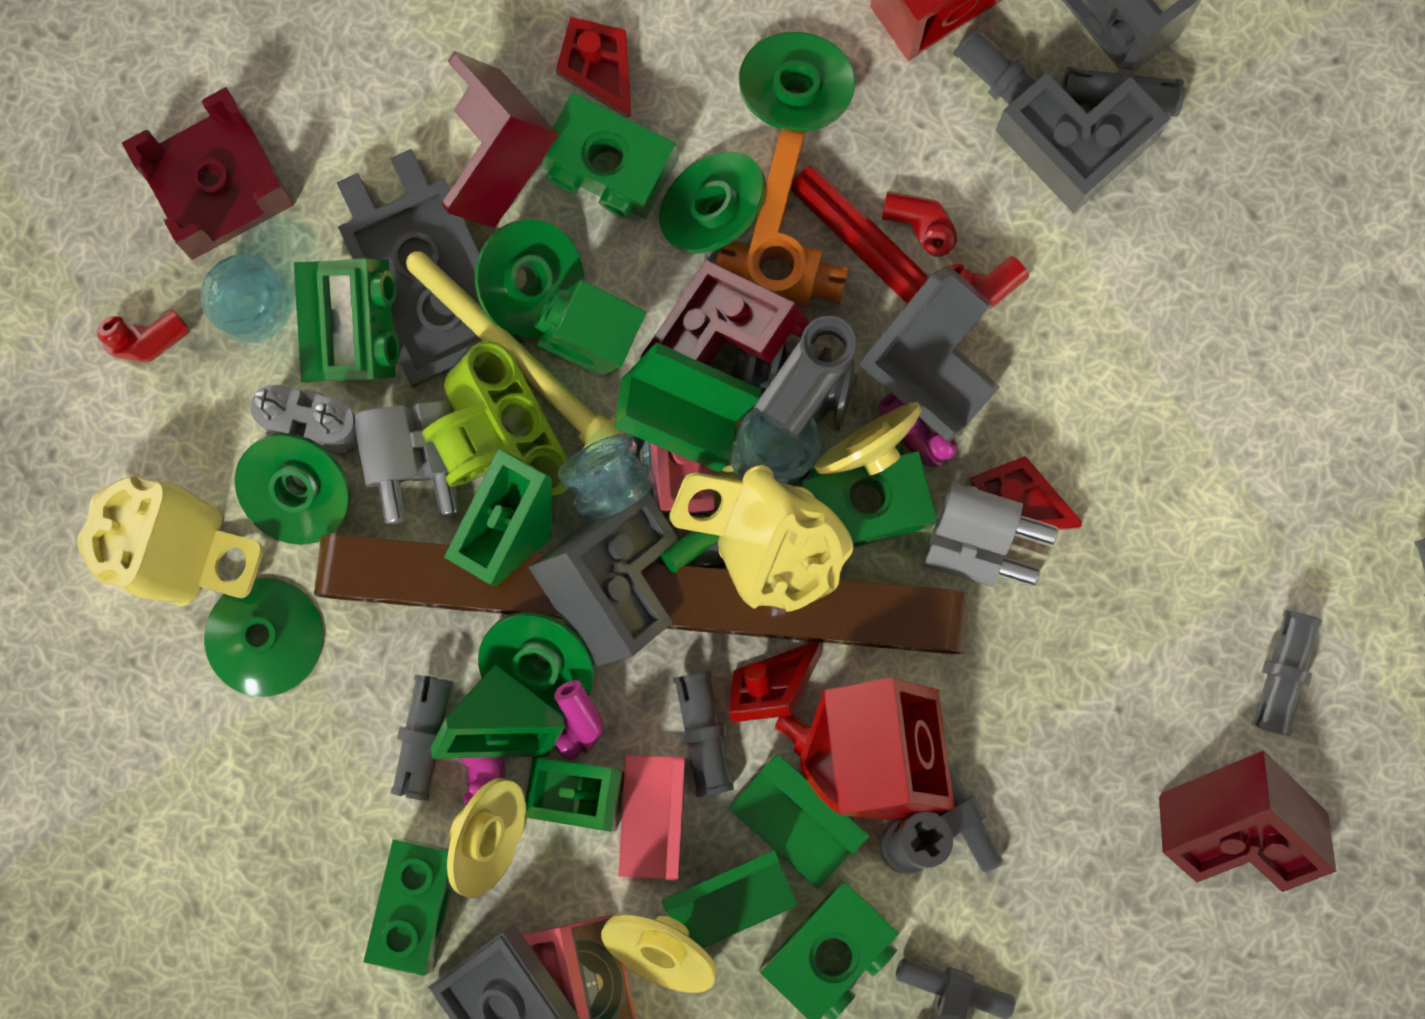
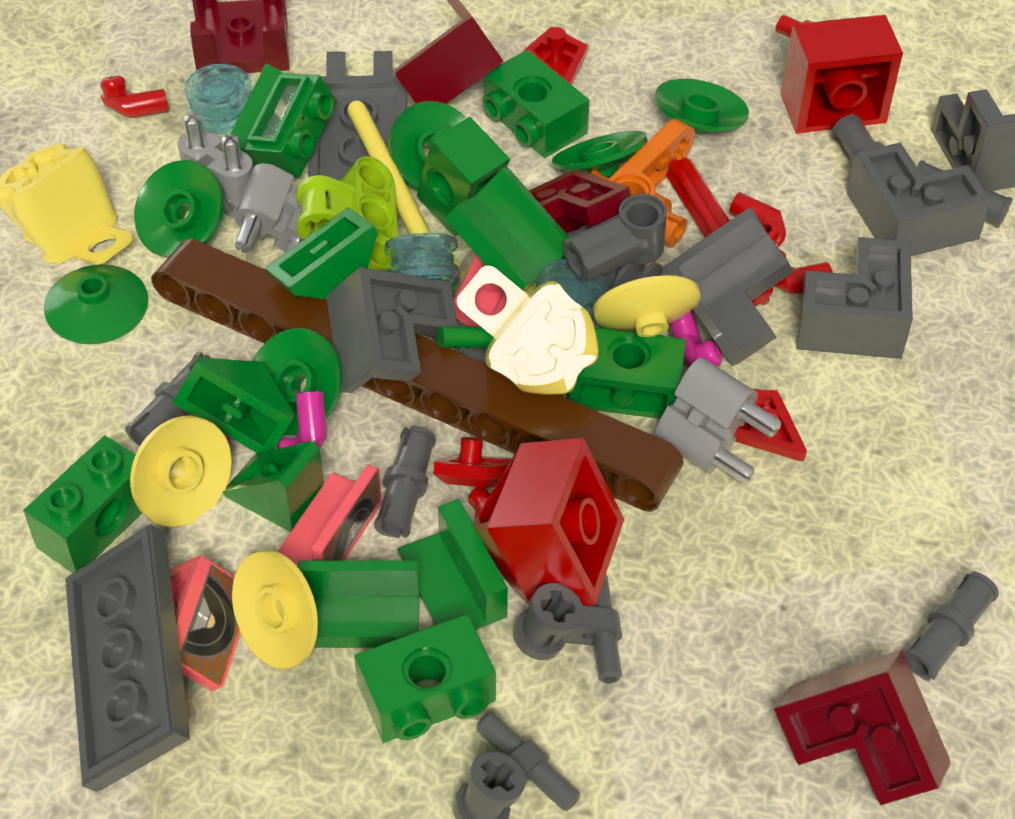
camera: 20 degrees right, 30 degrees down
(1090, 314) = (864, 310): none -> dark grey panel

